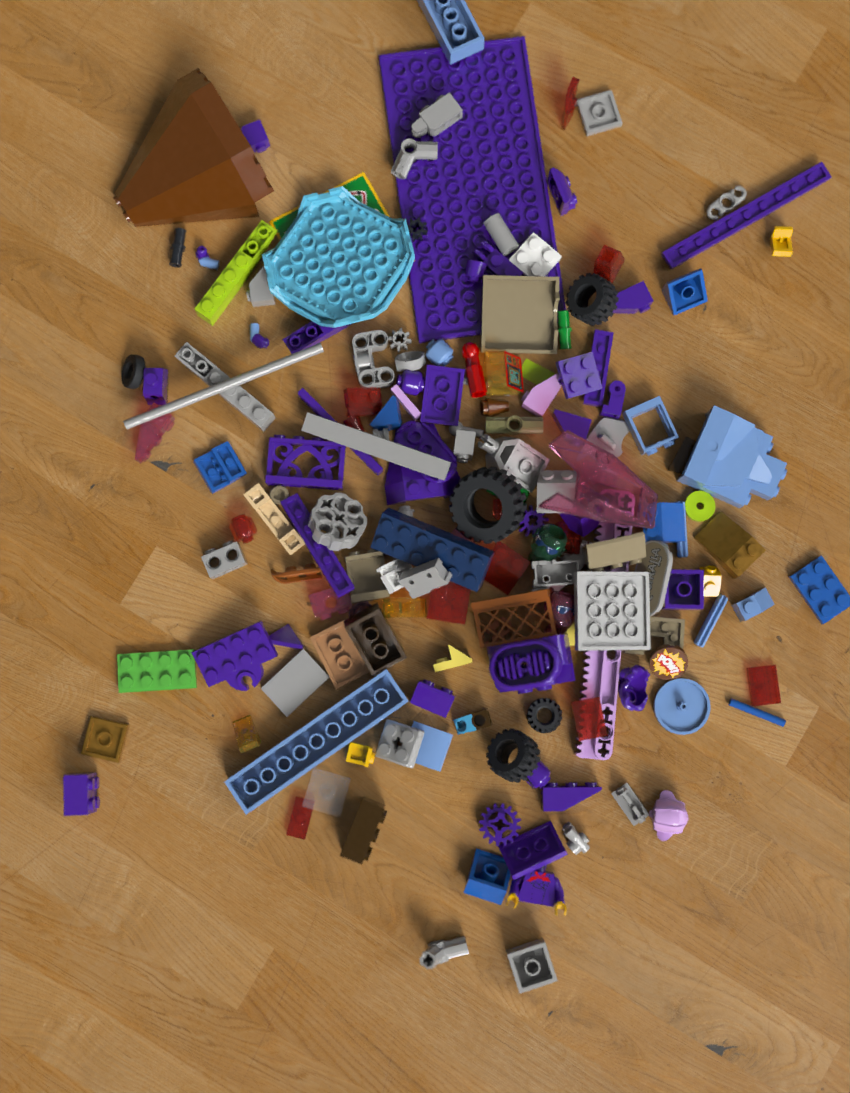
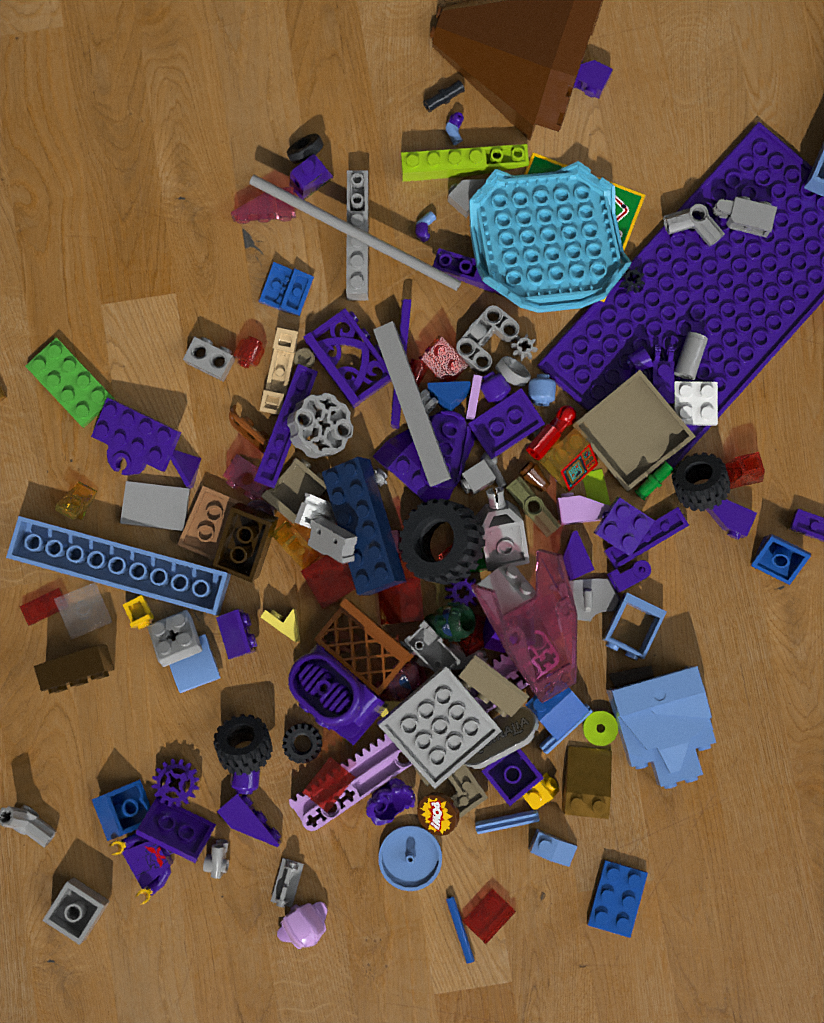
camera: 55 degrees right, 0 degrees up
(473, 721) = (246, 686): leg -> none
(561, 192) = (774, 376): dark purple slope -> none

